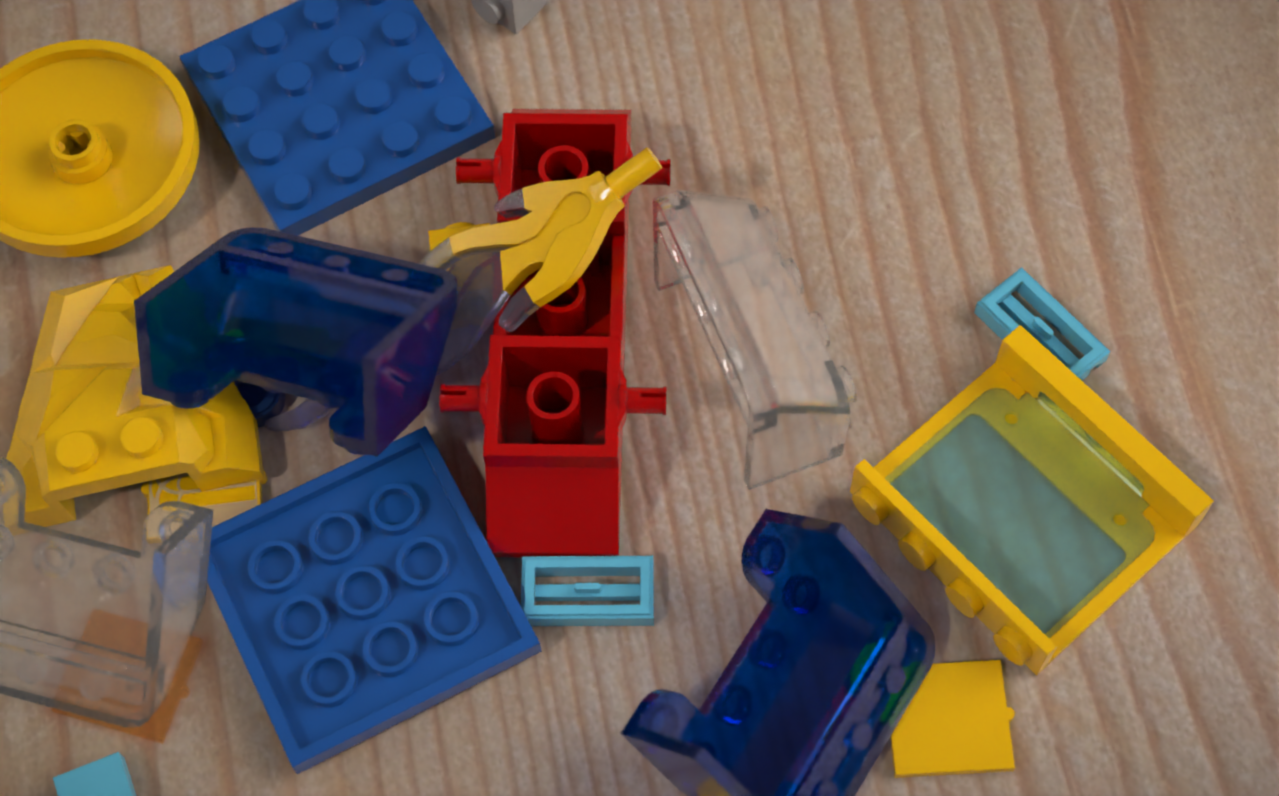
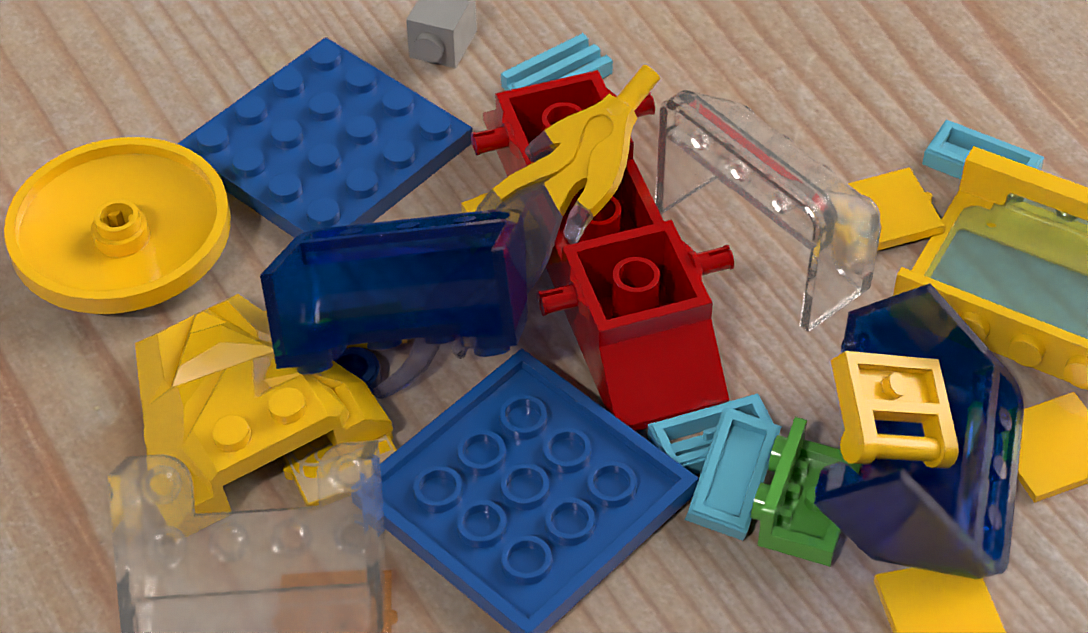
camera: 20 degrees left, 15 degrees down
(582, 645) = (732, 473): none -> medium azure tile
(614, 68) = (557, 63): none -> medium azure tile
(647, 662) = (787, 507): none -> bright green bracket
(774, 617) = (893, 390): none -> yellow plate
(898, 364) = (903, 207): none -> yellow piece

